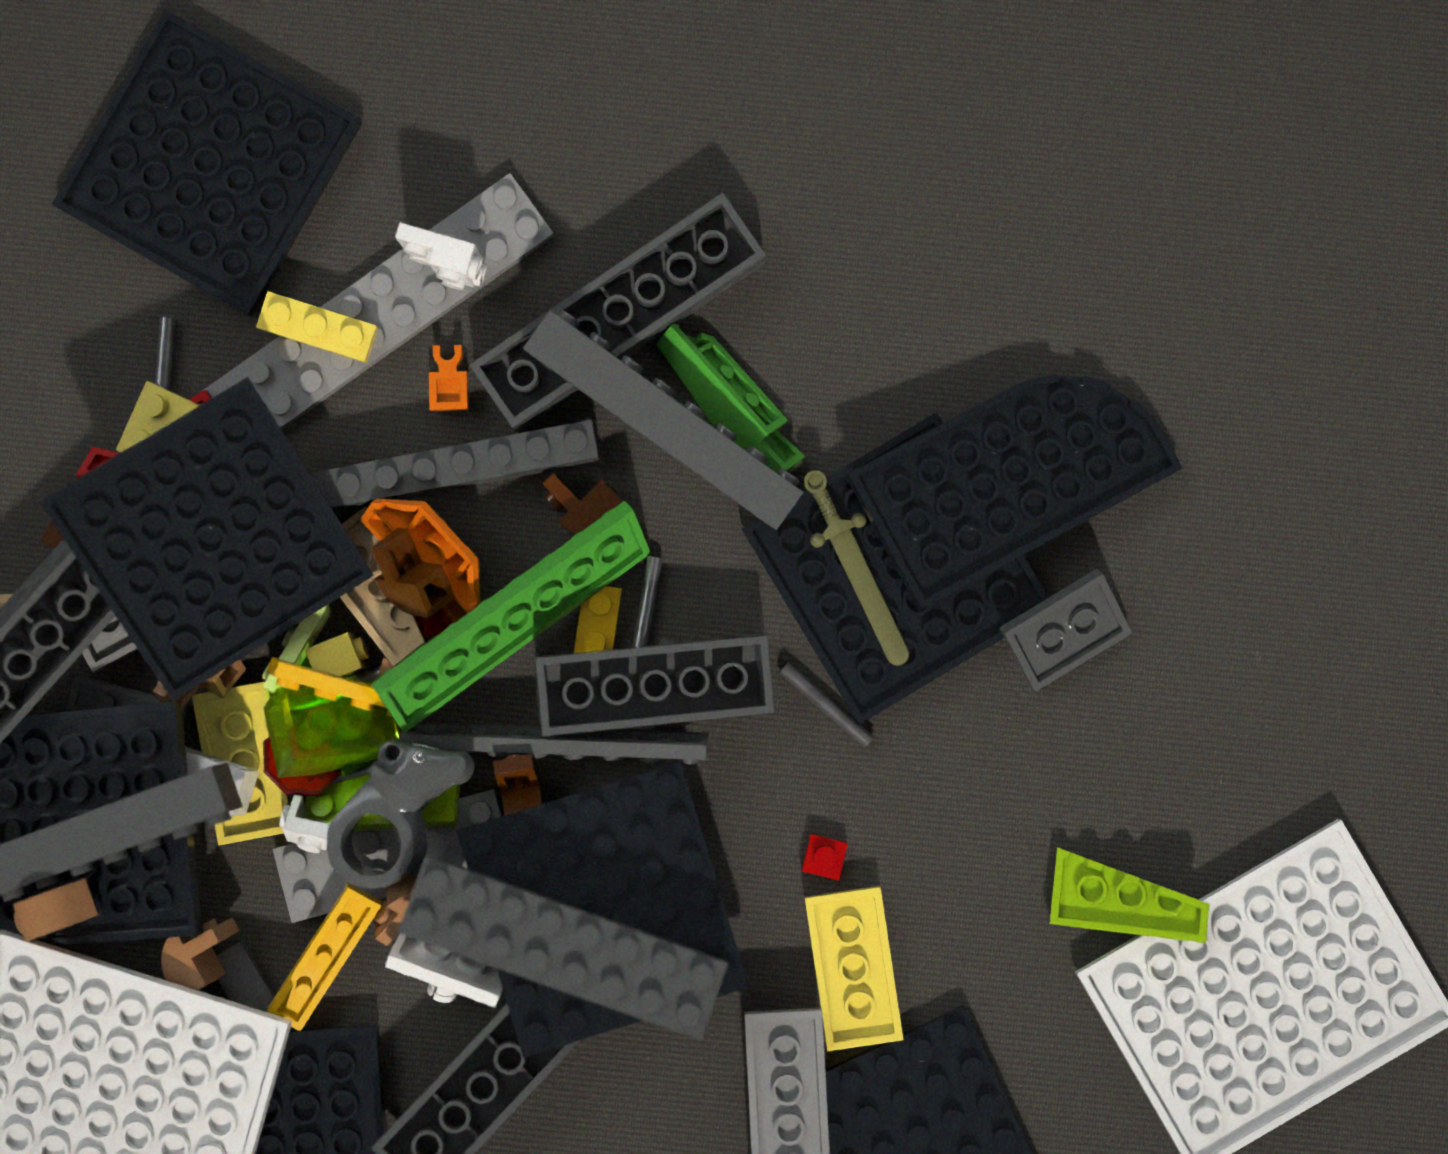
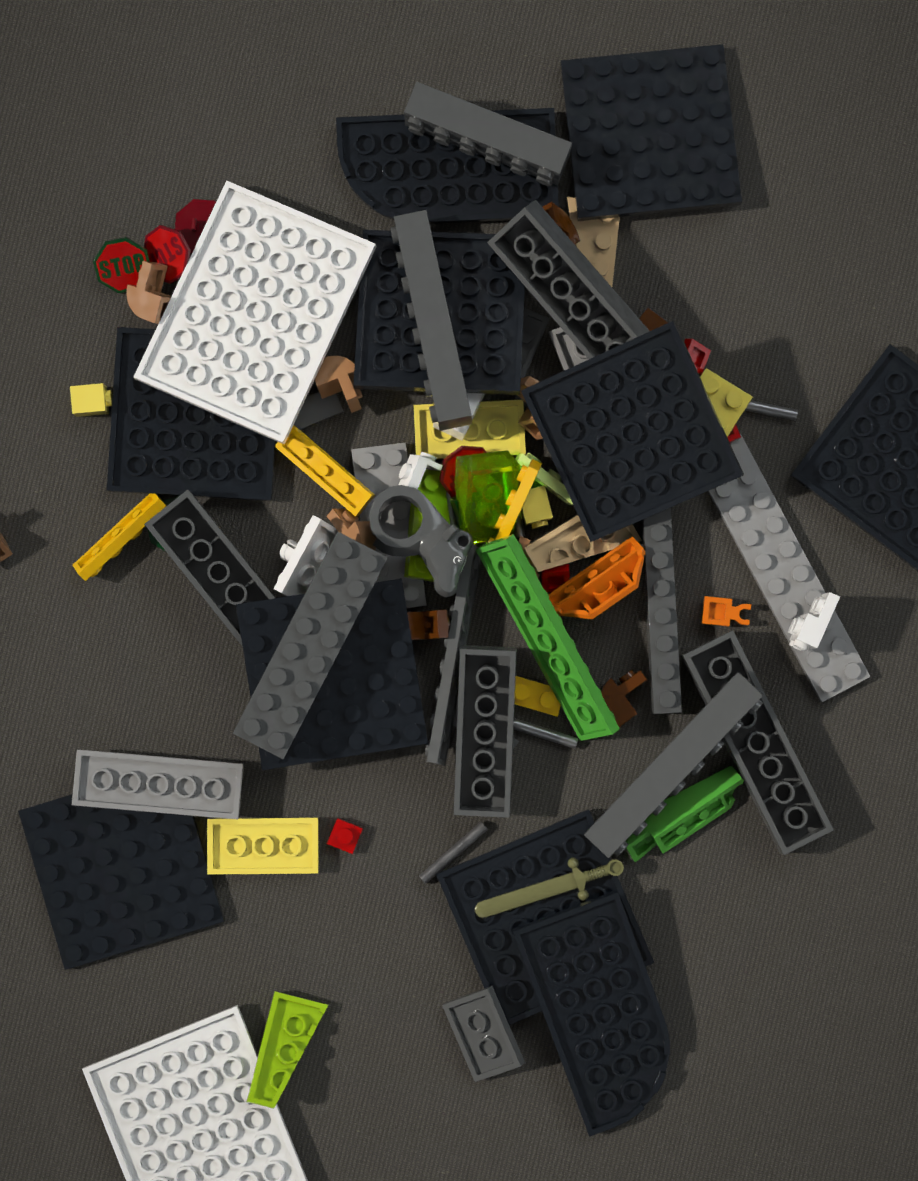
camera: 100 degrees right, 0 degrees up
(54, 910) = (385, 288): medium nougat brick -> none
(317, 327) = (775, 523): light yellow plate -> none
(407, 581) = (582, 567): reddish brown brick -> none

